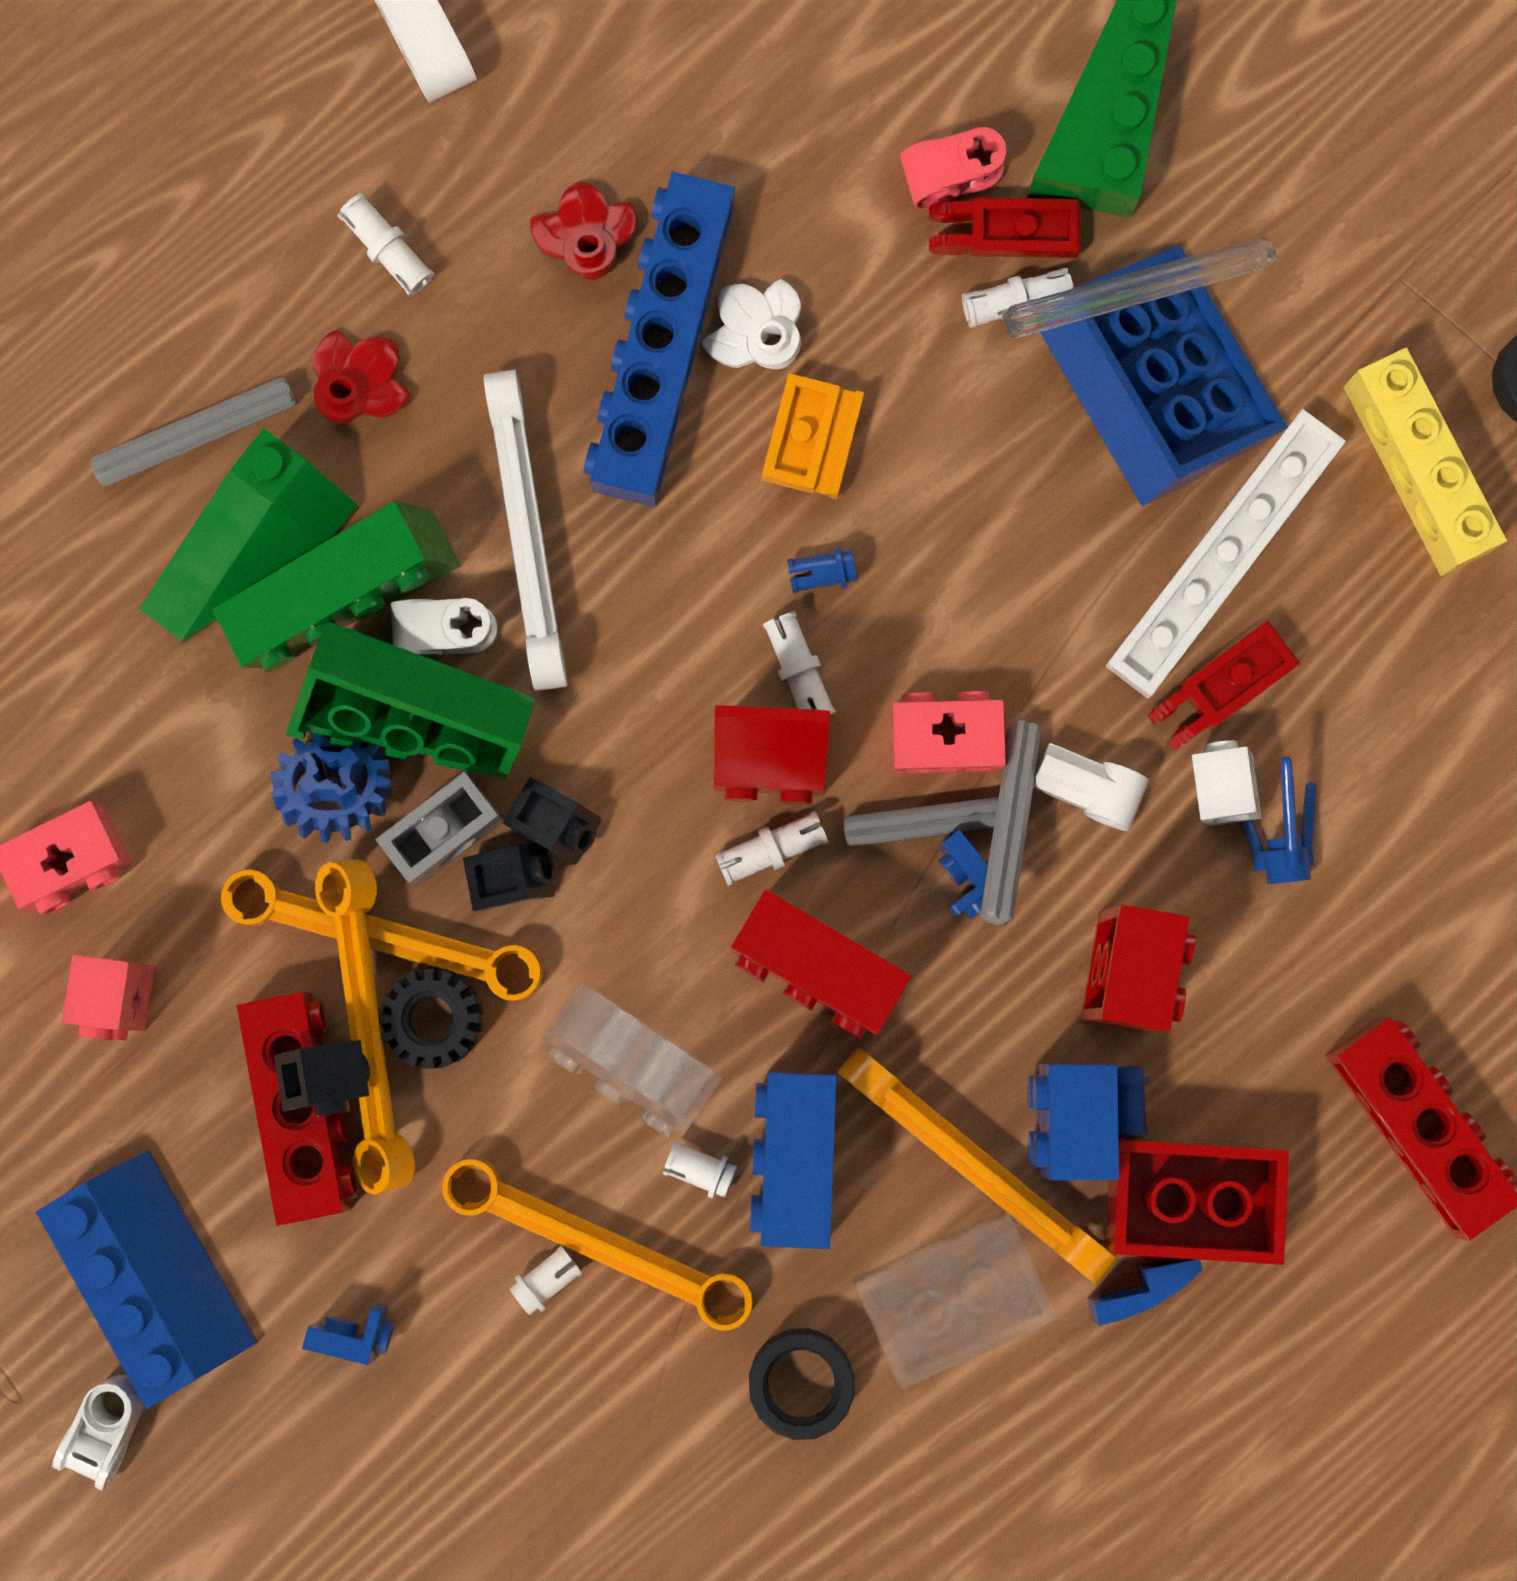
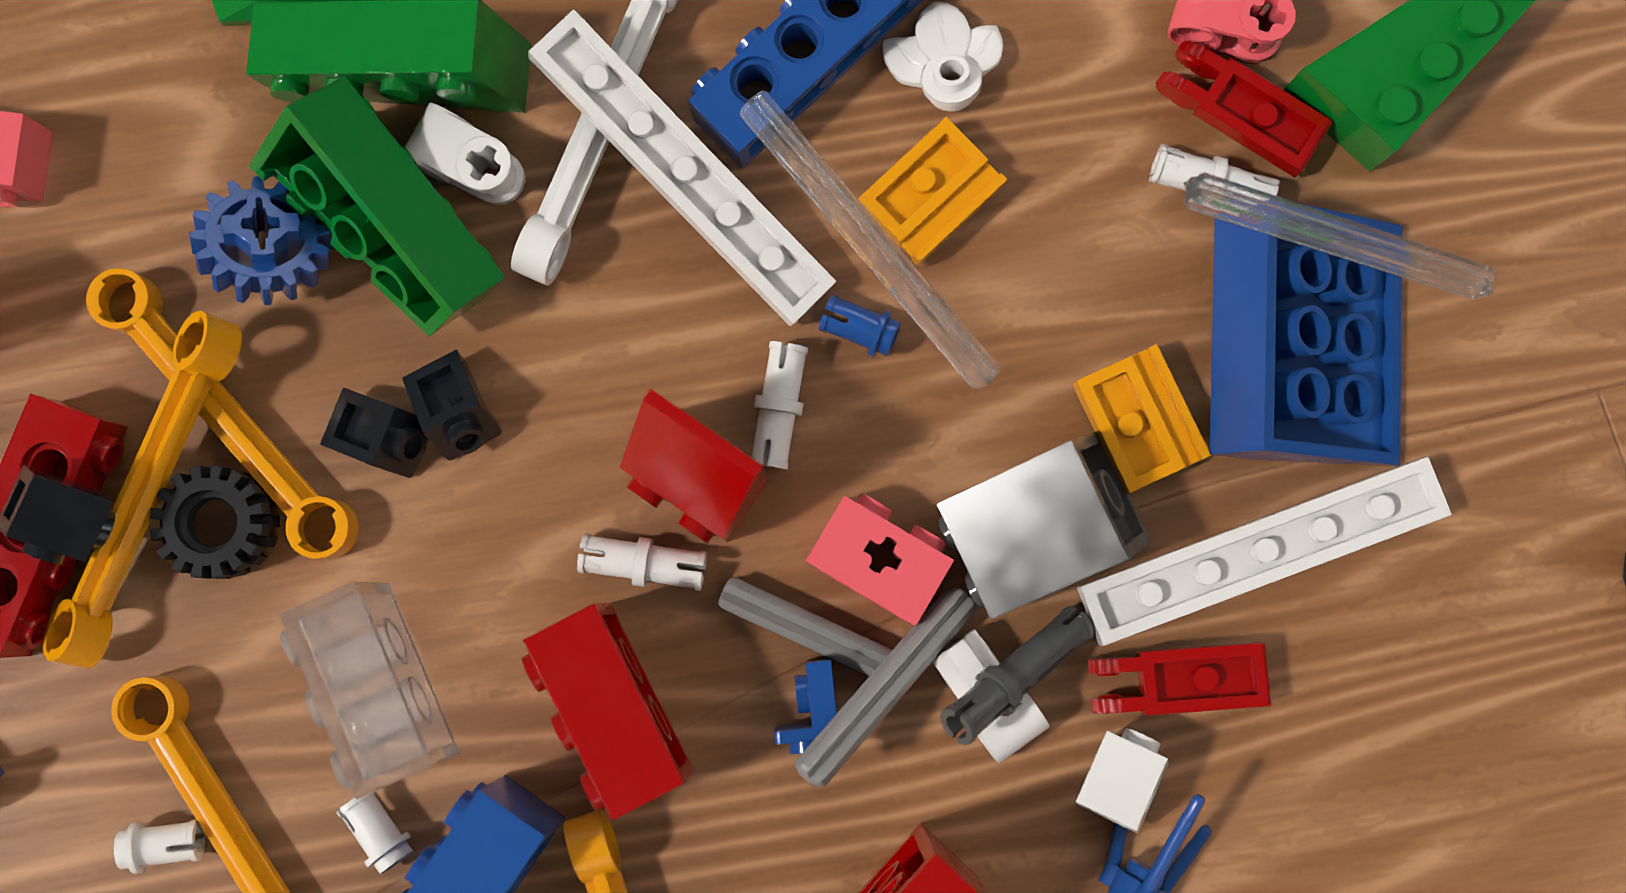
camera: 30 degrees right, 0 degrees up
(439, 830) = (332, 346): light grey brick -> none
(617, 535) = (680, 167): none -> white plate
(791, 502) = (869, 239): none -> clear axle
(1051, 634) = (1042, 526): none -> slope
(1075, 511) = (1141, 419): none -> light orange plate
(1096, 768) = (1003, 686): none -> dark grey pin
(1424, 462) = (1518, 583): light yellow brick -> none

